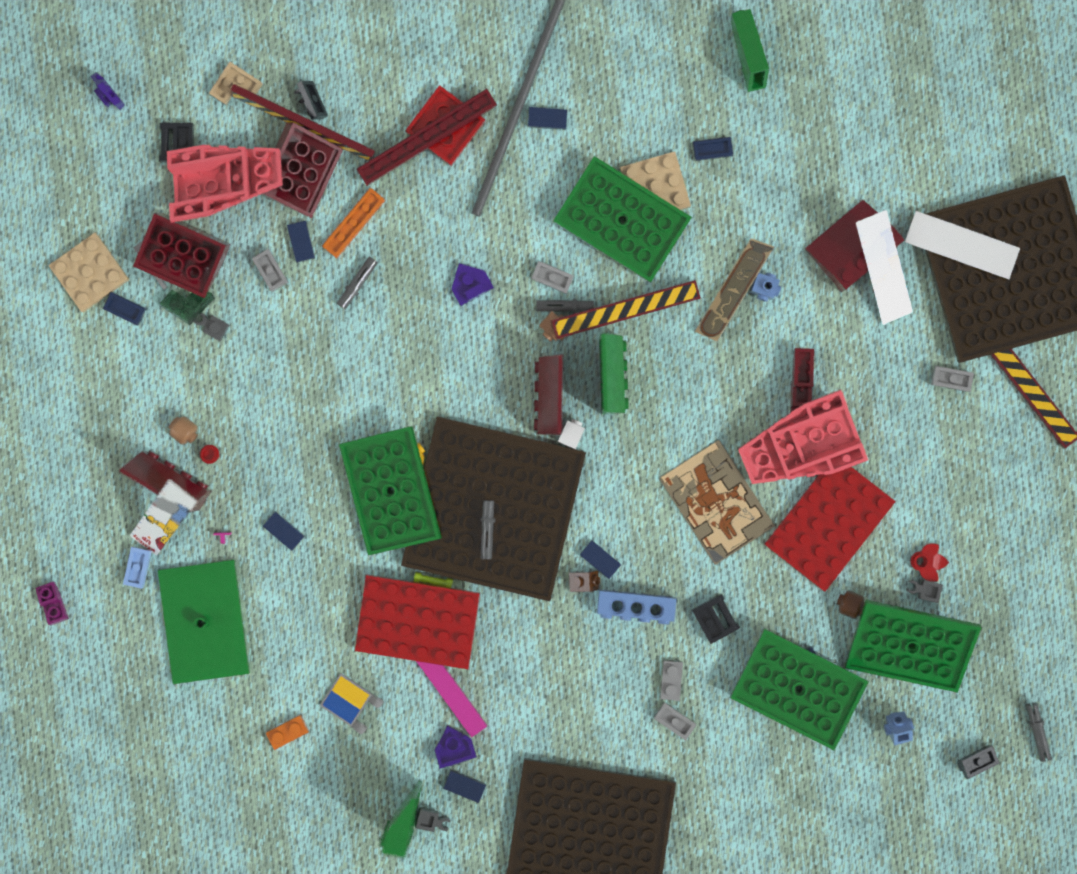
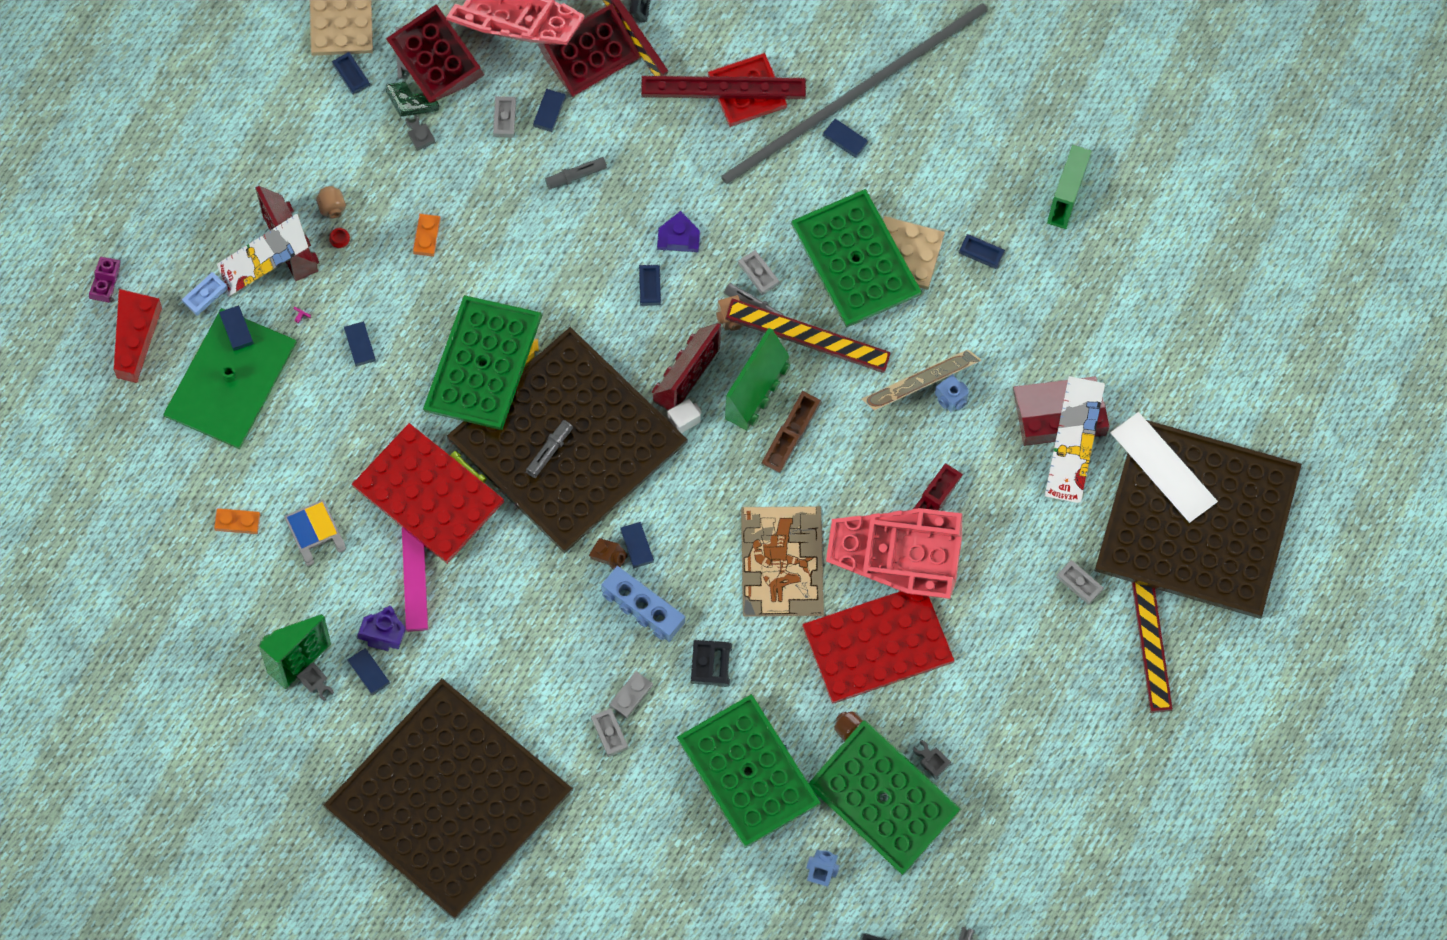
camera: 30 degrees right, 20 degrees down
(105, 636) = (134, 331): none -> red wedge
(181, 581) = (236, 328): none -> dark blue tile
(275, 408) = (426, 235): none -> orange plate
(353, 223) = (608, 122): orange tile -> none
(474, 340) = (649, 285): none -> dark blue tile
(659, 393) = (791, 431): none -> reddish brown slope
(931, 562) = (954, 739): red plate -> none

